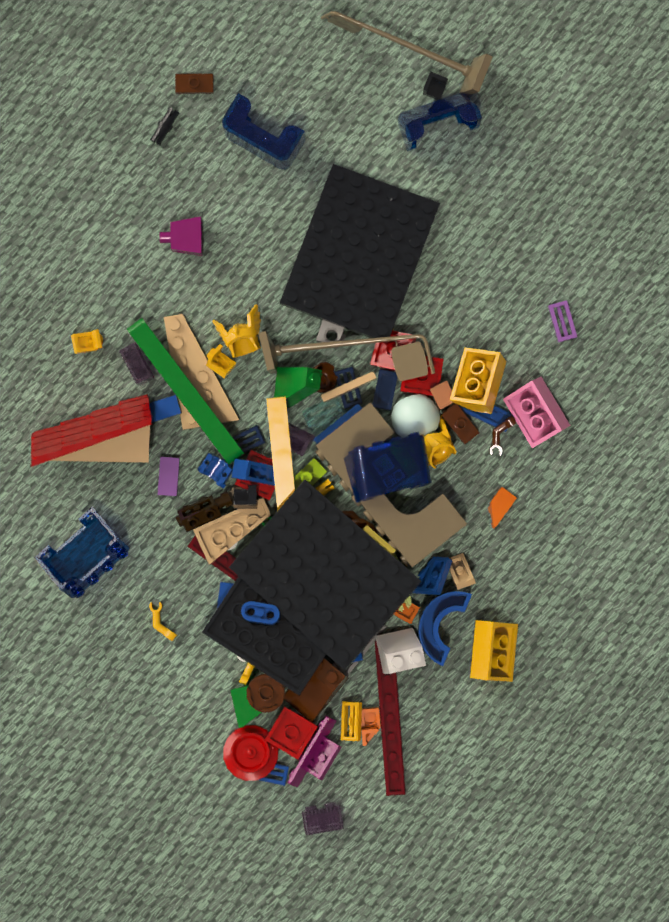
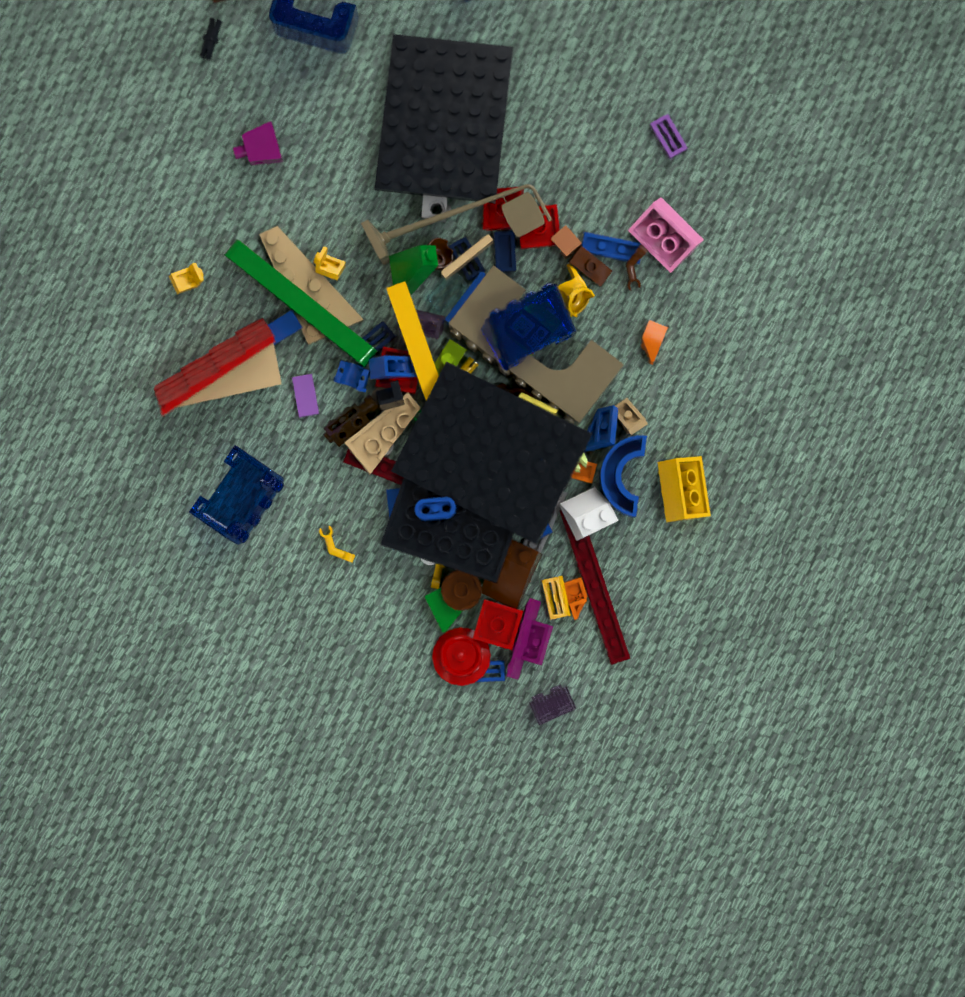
camera: 15 degrees left, 0 degrees up
(136, 364) = (243, 288): clear purple brick -> none
(242, 338) = (344, 234): yellow helmet -> none
(414, 415) = (542, 267): light aqua cylinder -> none
(478, 380) = (598, 216): yellow slope -> none

